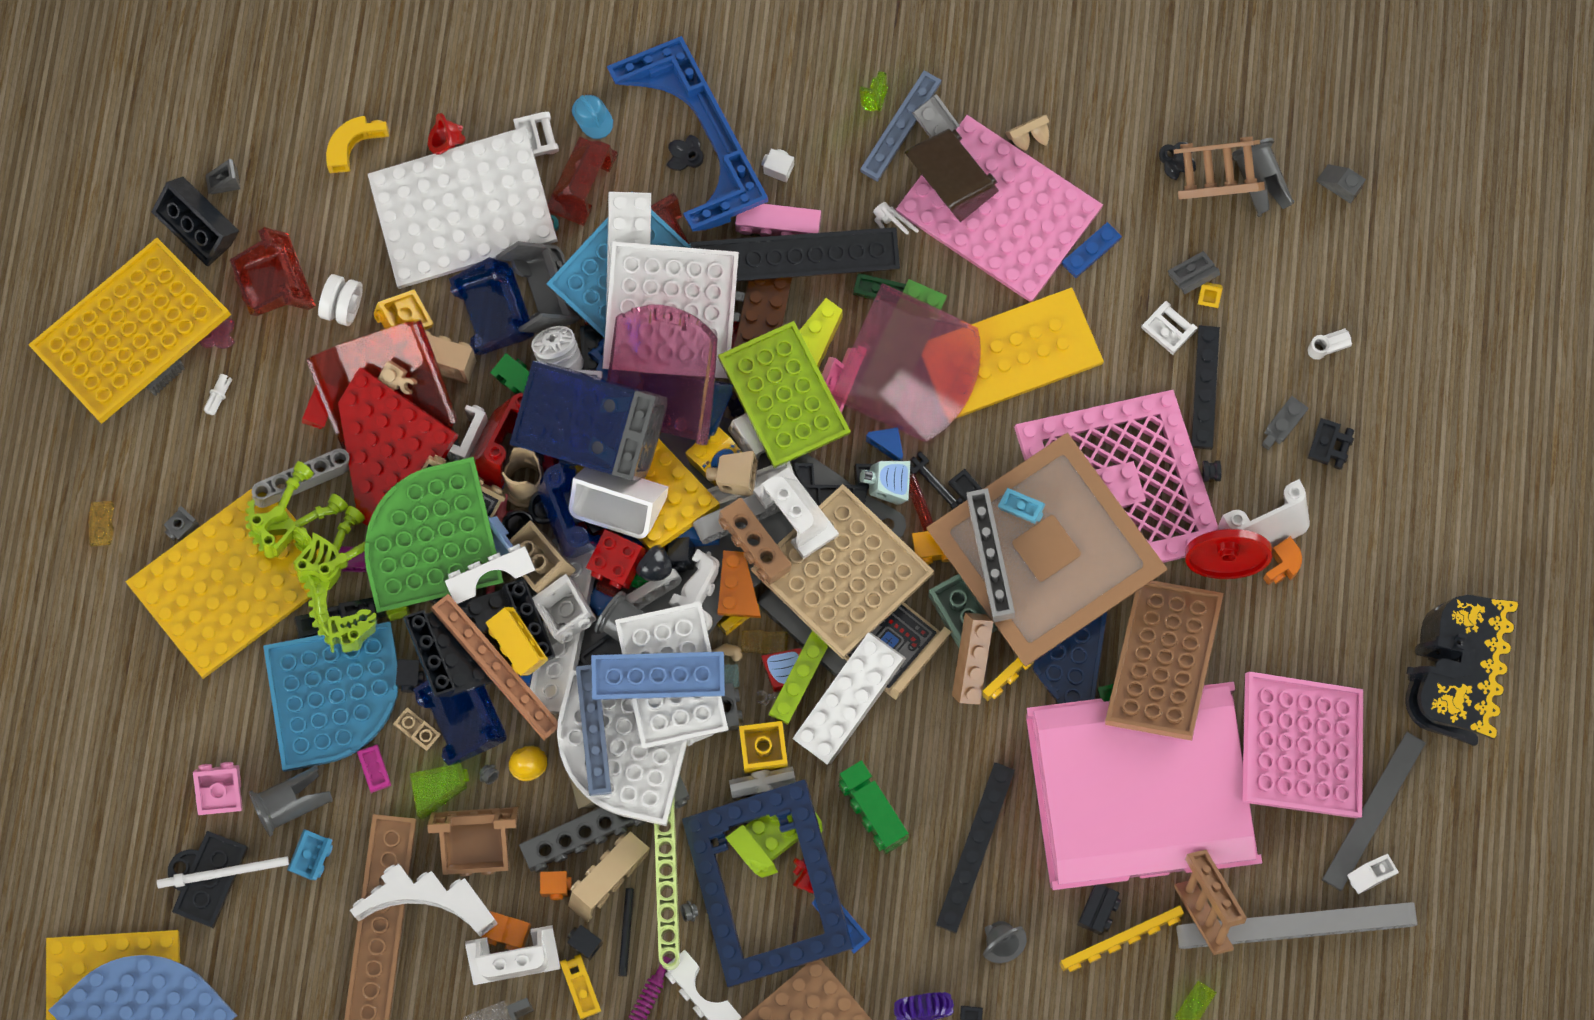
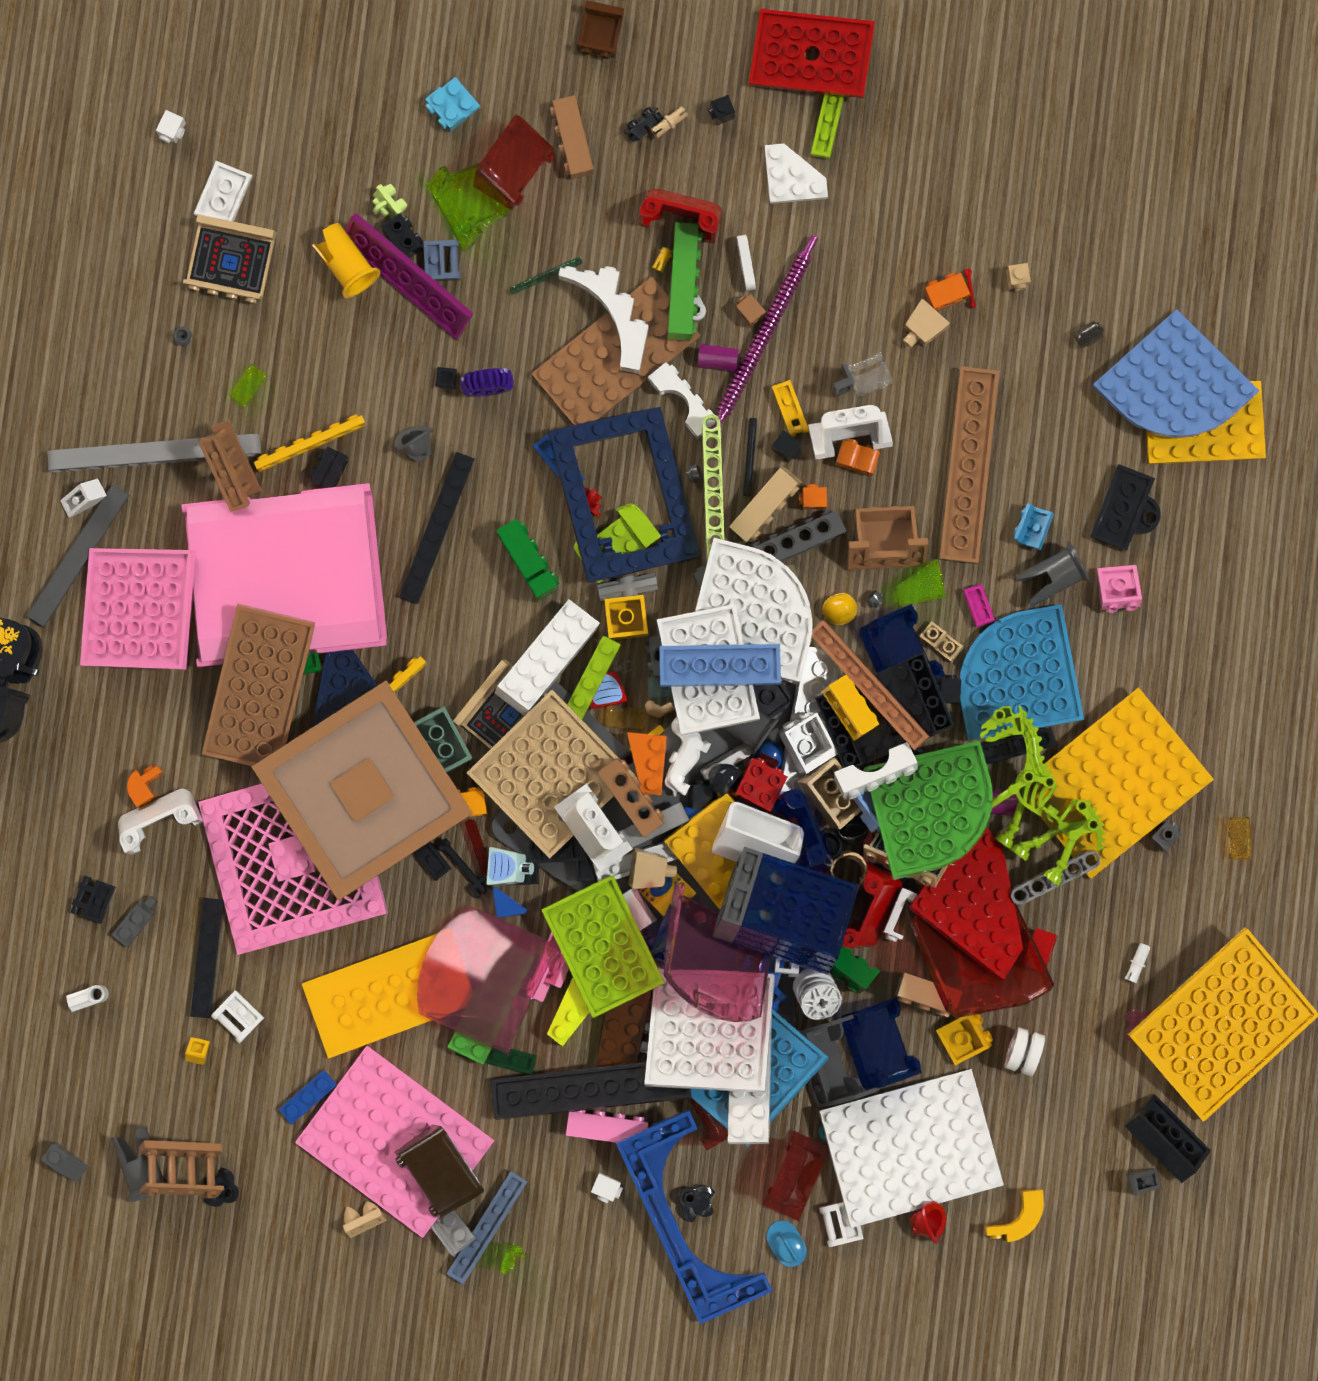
camera: 175 degrees right, 10 degrees up
(180, 880) = (1148, 504): white bar -> none
(271, 274) = (1090, 1079): clear red windscreen -> none
(394, 377) = (970, 968): tan plate -> none
(427, 890) = (924, 489): white arch -> none
(593, 735) = (779, 617): sand blue plate -> none
(887, 214) = (504, 1135): white plant -> none
(972, 658) = (434, 692): medium nougat brick -> none
(990, 555) = (413, 779): light grey brick -> none
(1021, 506) = (383, 826): medium azure plate -> none
(1194, 272) = (211, 1070): dark grey plate -> none
(1211, 471) = (205, 873): black wheel -> none
(1228, 554) = (194, 785): red dish -> none

